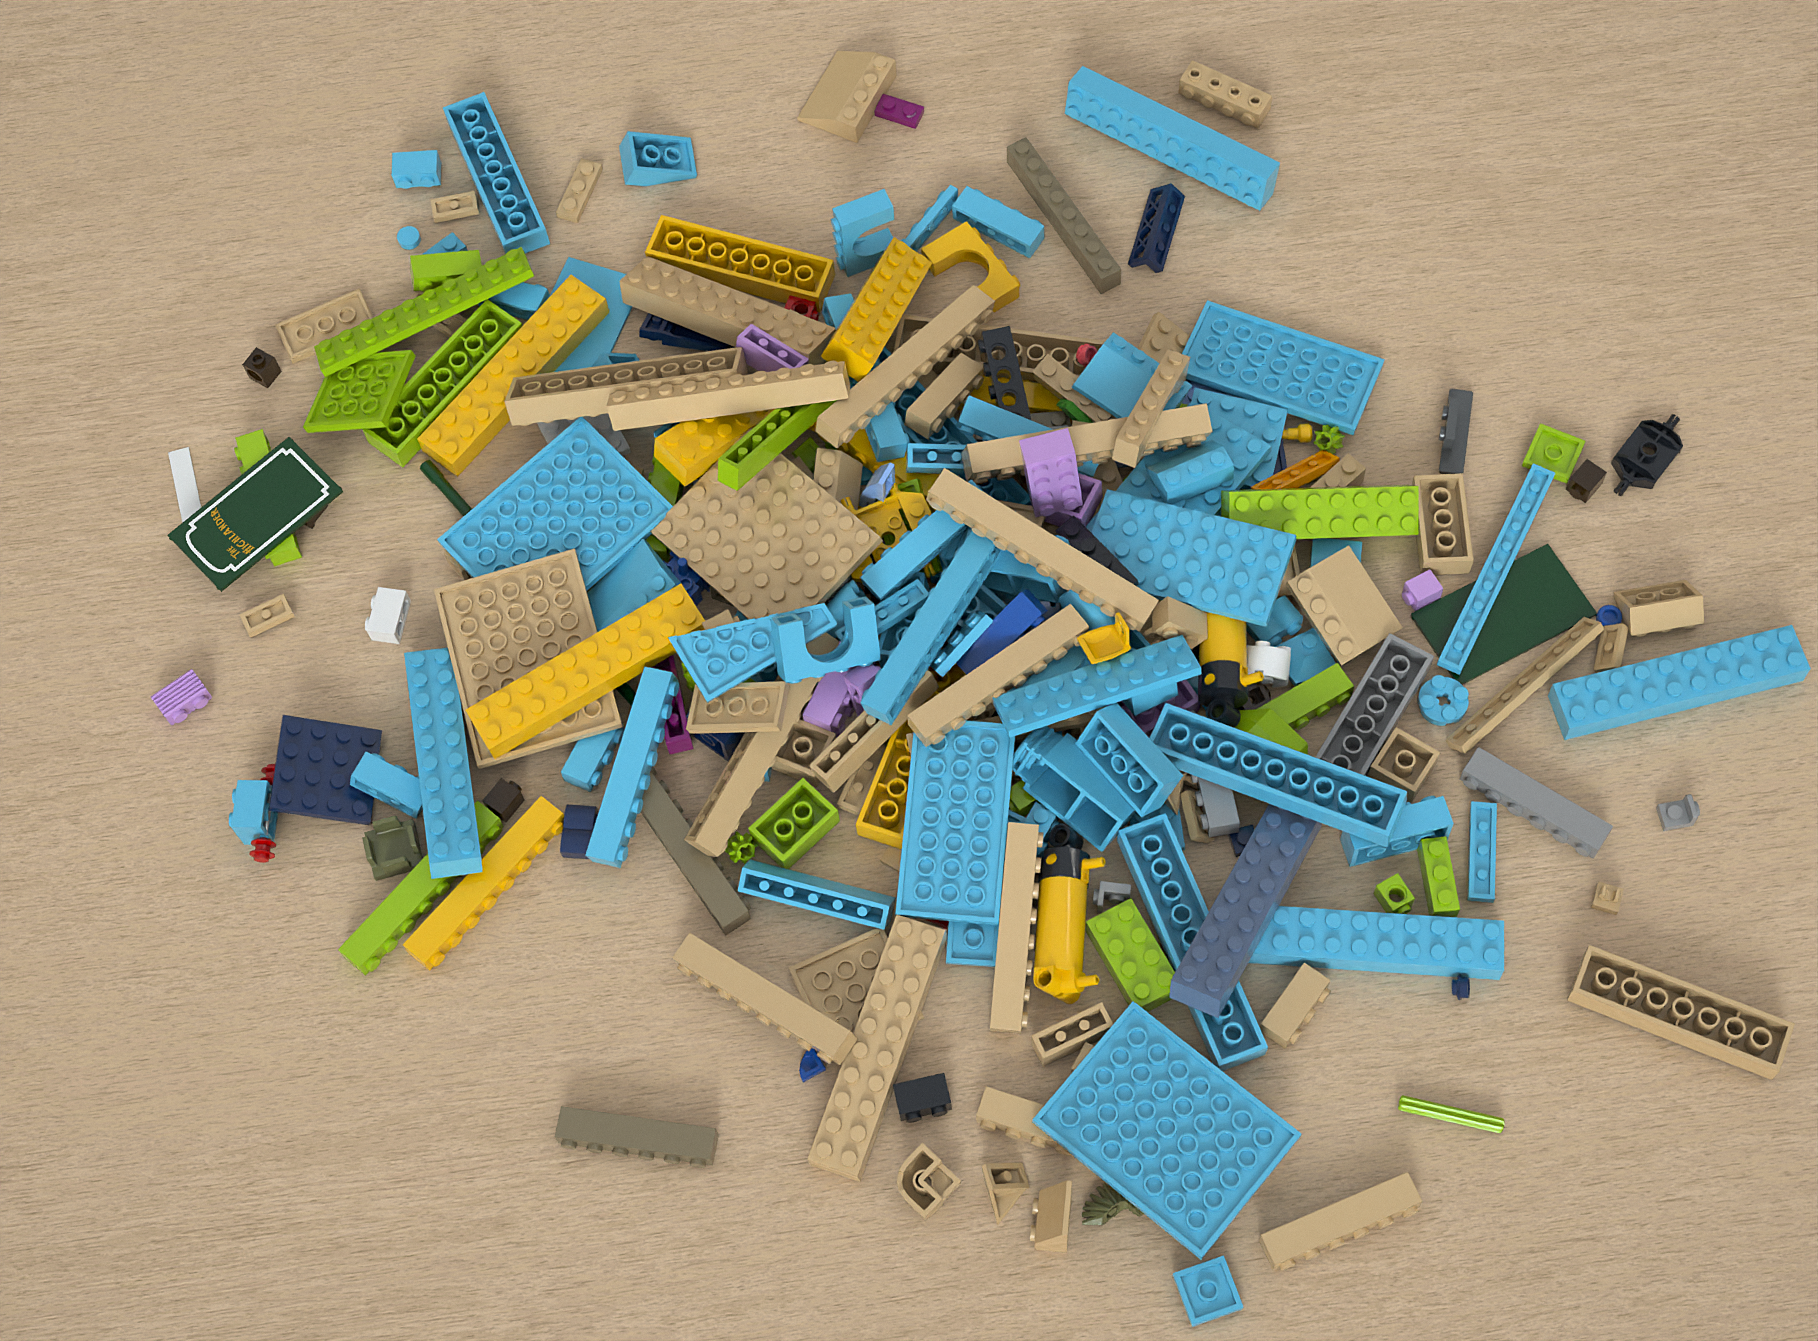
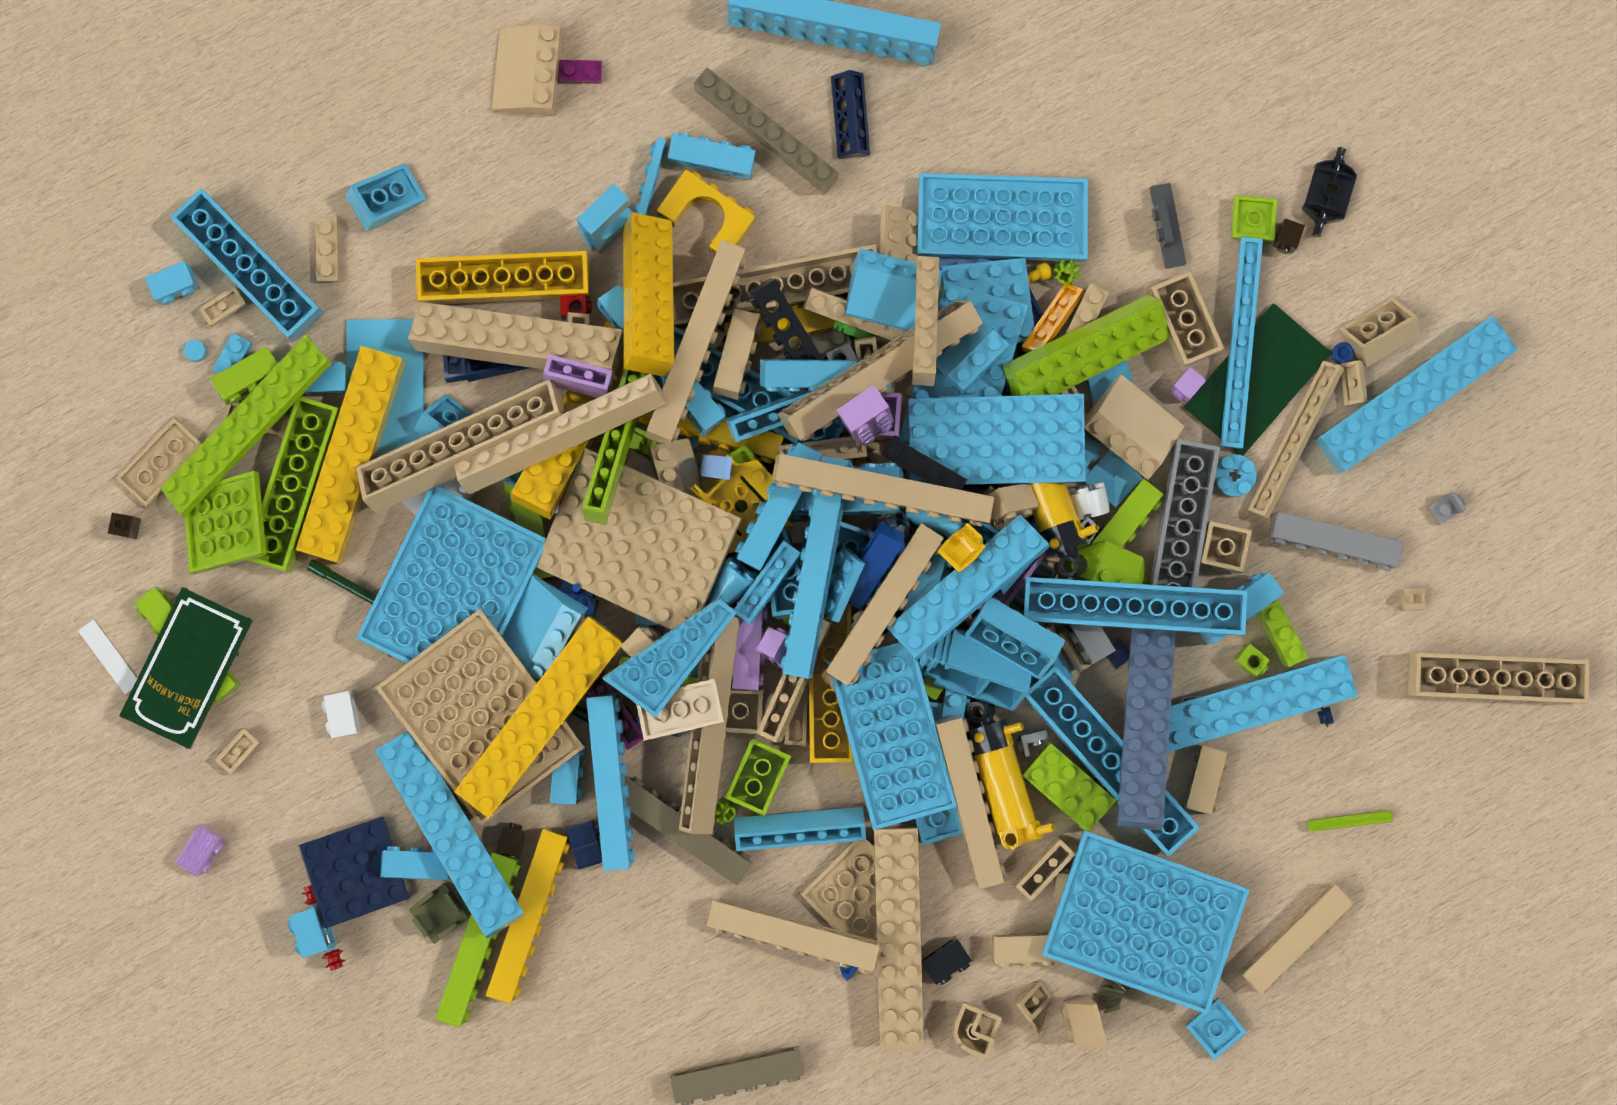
camera: 30 degrees left, 20 degrees up
(857, 647) = (758, 625): medium azure arch -> none
(1085, 354) = (842, 271): coral plate -> none
(1482, 852) = (1306, 596): medium azure plate -> none

